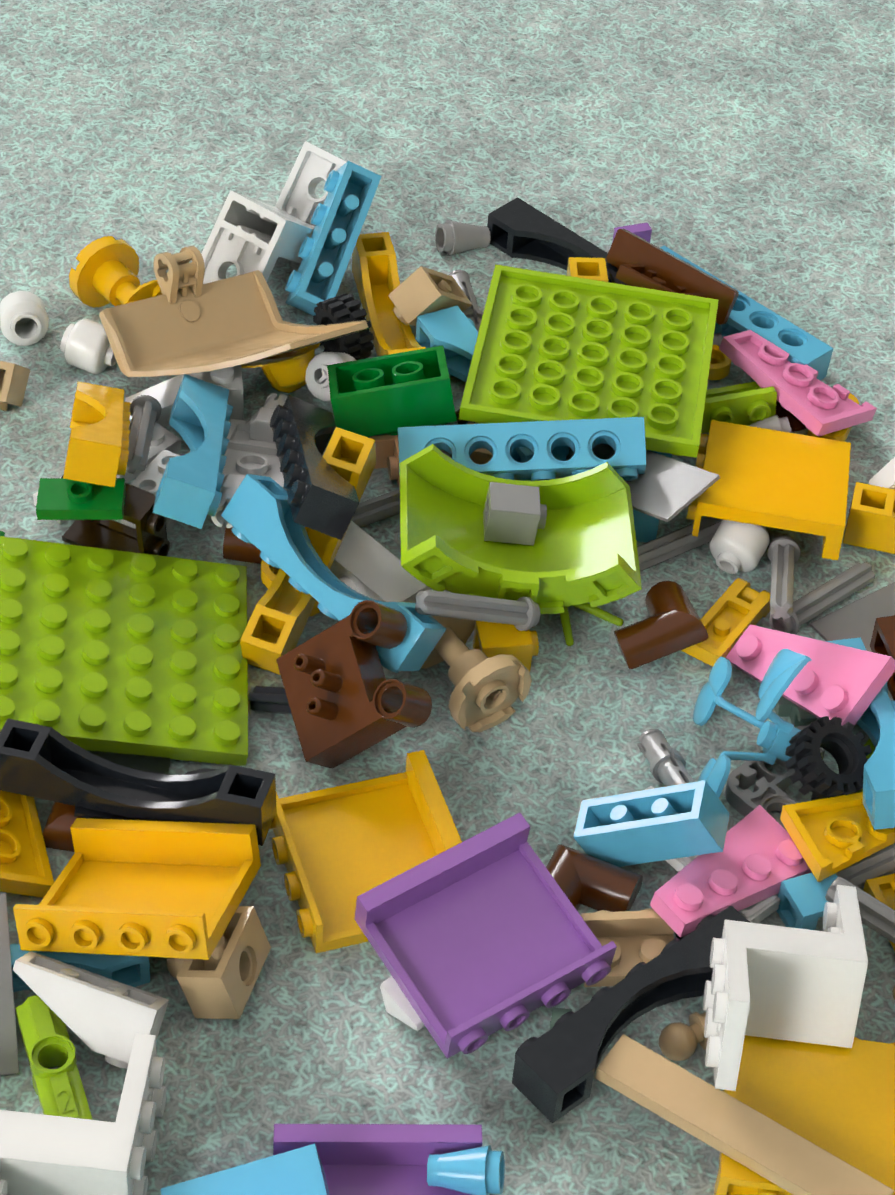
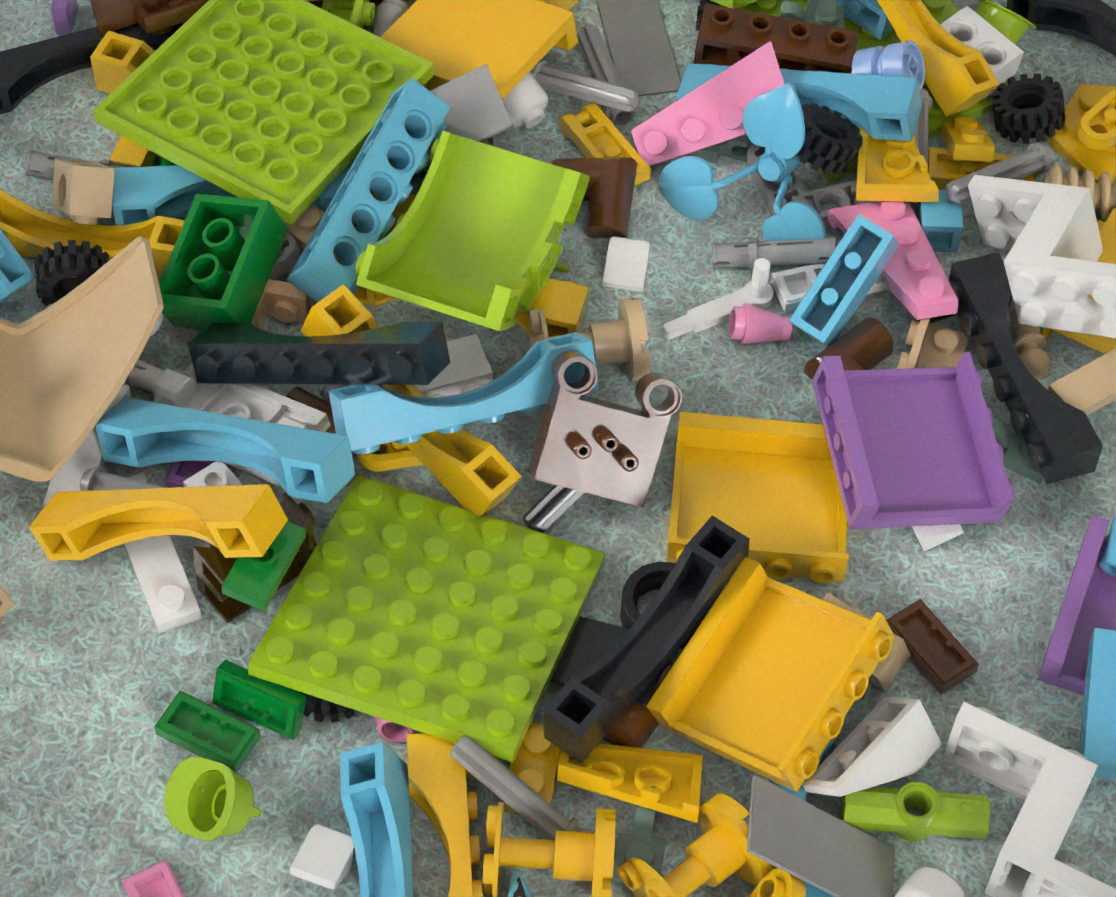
camera: 65 degrees left, 10 degrees up
(261, 1037) = (932, 646): none -> reddish brown plate
(513, 513) = (443, 232): light grey brick -> none
(520, 613) = (561, 278): light grey axle -> none
(576, 783) = (756, 325): none -> bright pink cone
(591, 766) = (755, 293): none -> white piece
(596, 679) = (626, 264): none -> white slope

